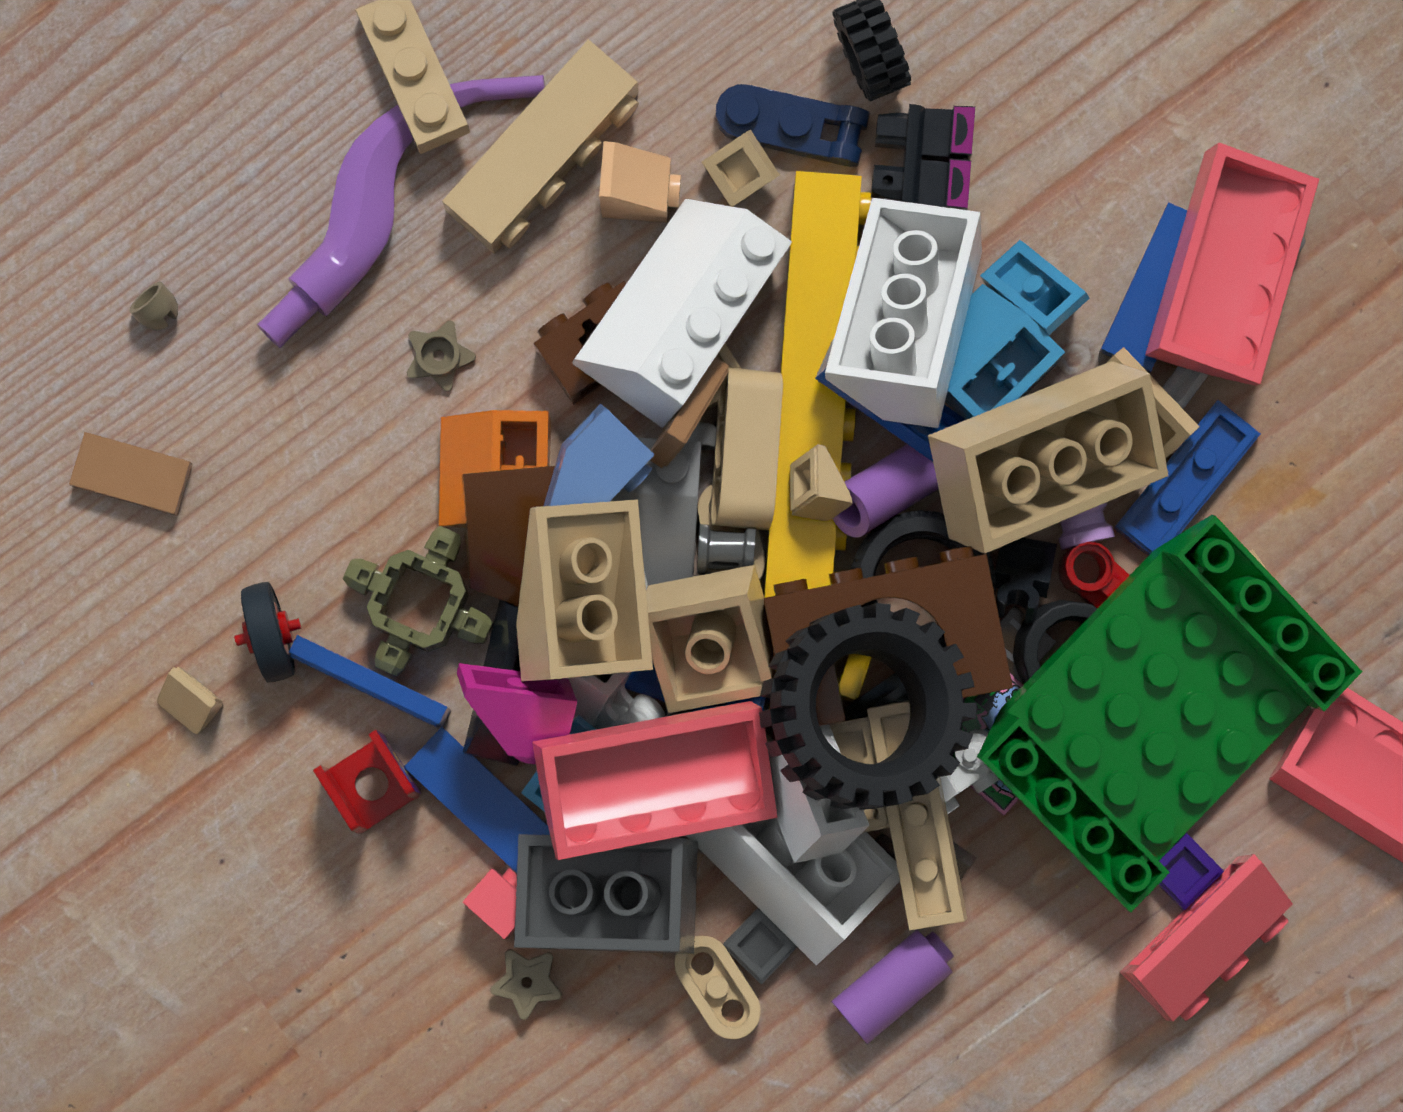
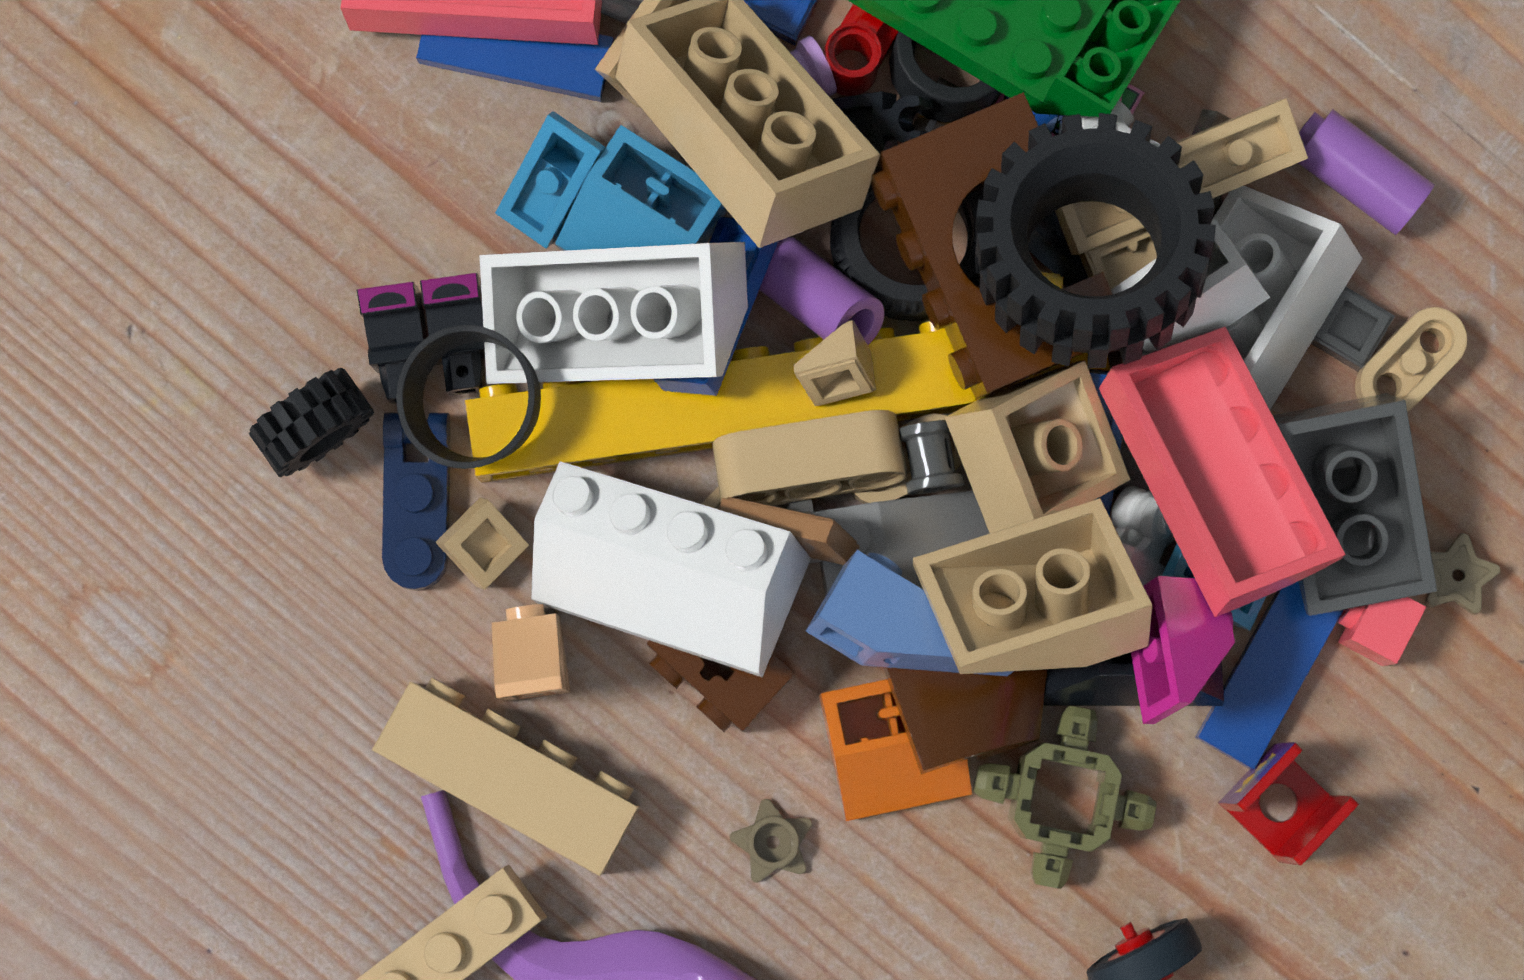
camera: 105 degrees left, 0 degrees up
(369, 682) = (1169, 830): blue tile -> none
(866, 129) = (412, 385): none -> black tyre

